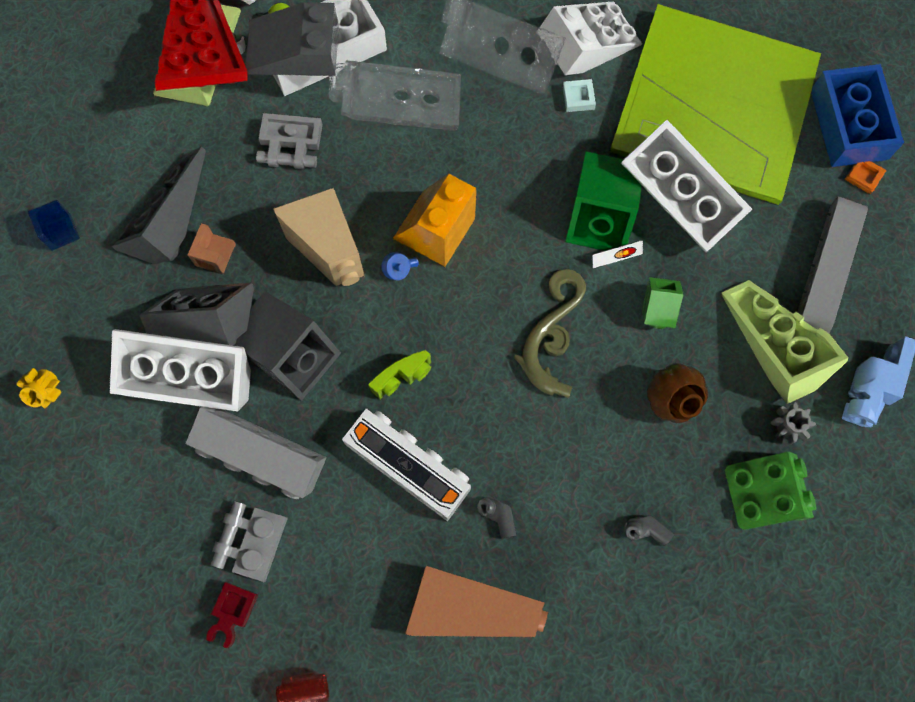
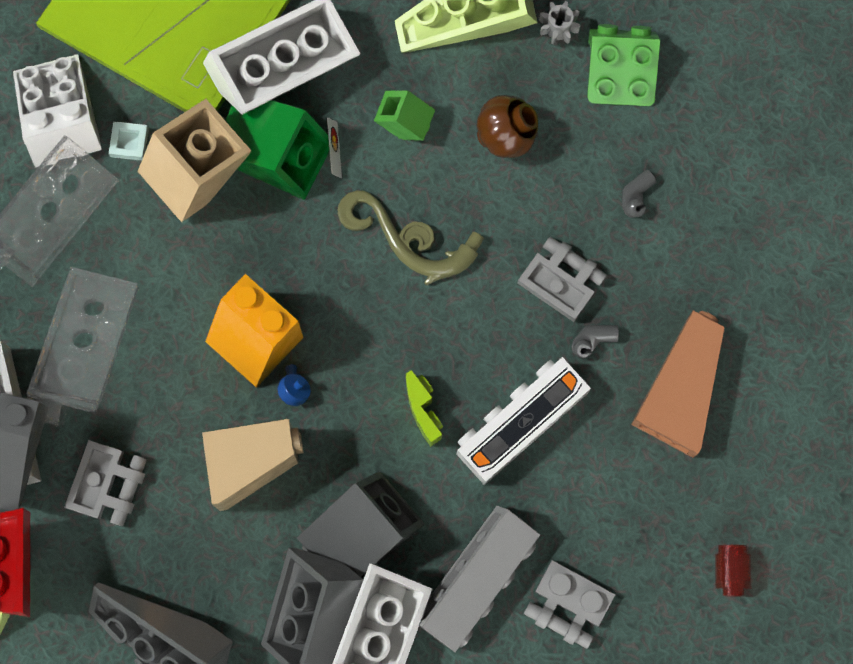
camera: 80 degrees left, 5 degrees up
(210, 250) = (226, 595): nougat panel -> none
(233, 609) = (637, 630): dark red plate -> none
(539, 470) = (556, 286): none -> light grey plate
(573, 135) = (192, 159): none -> tan slope

